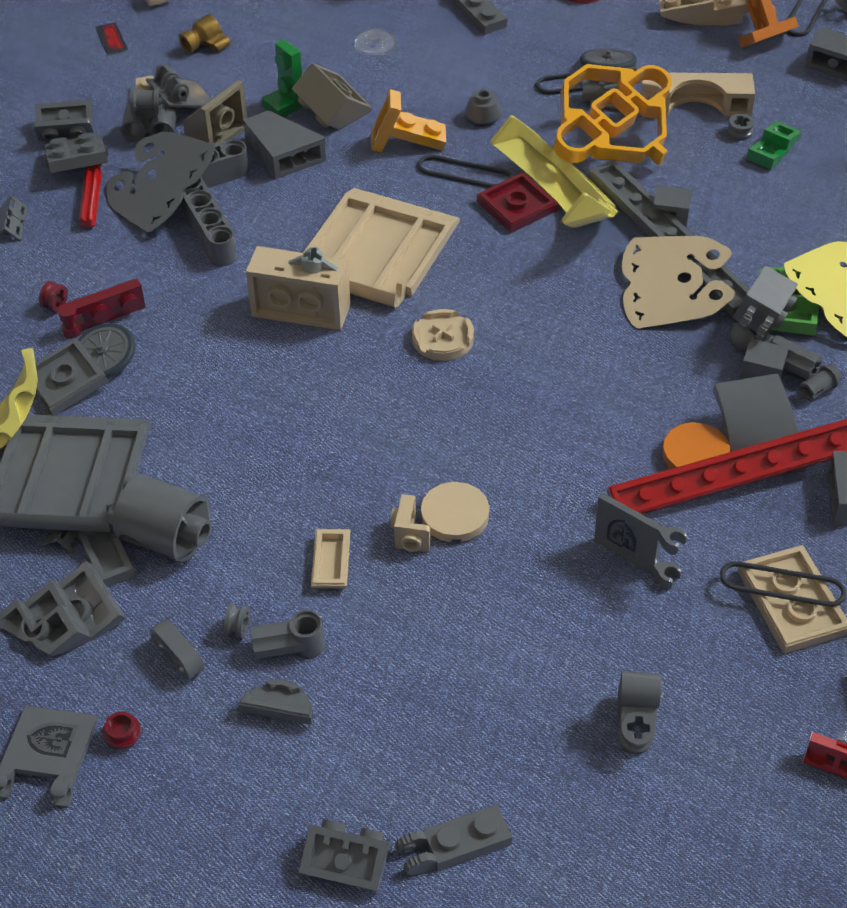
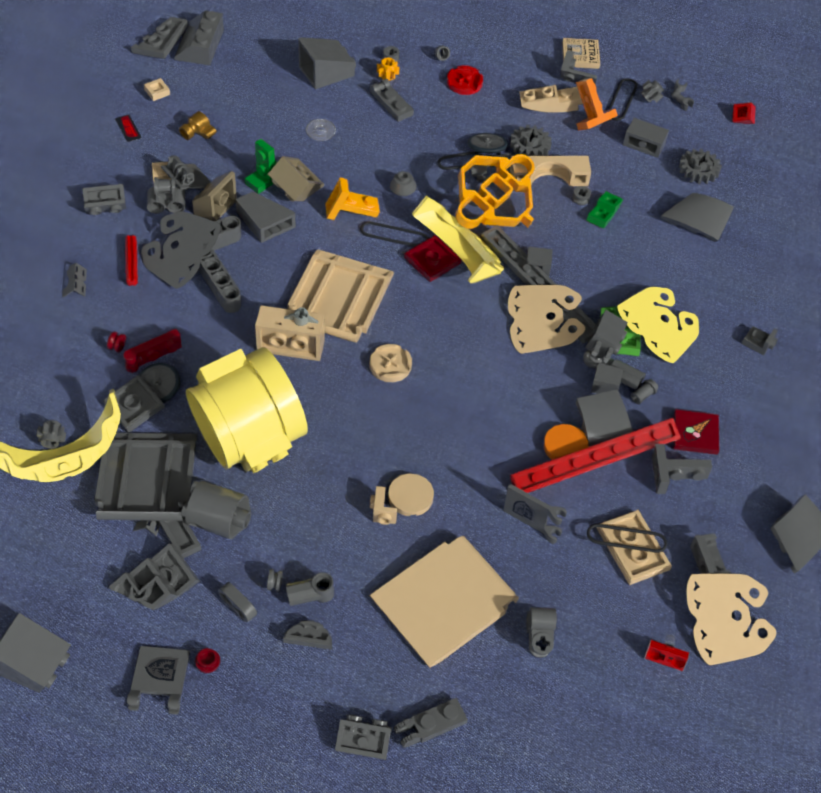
camera: 10 degrees left, 5 degrees up
(75, 153) = (116, 226): dark grey plate -> none
(218, 378) = (247, 409): none -> light yellow cylinder
(330, 559) = (332, 532): tan tile -> none
(492, 661) = (444, 600): none -> tan piece
(672, 55) = (530, 141): none -> dark grey gear

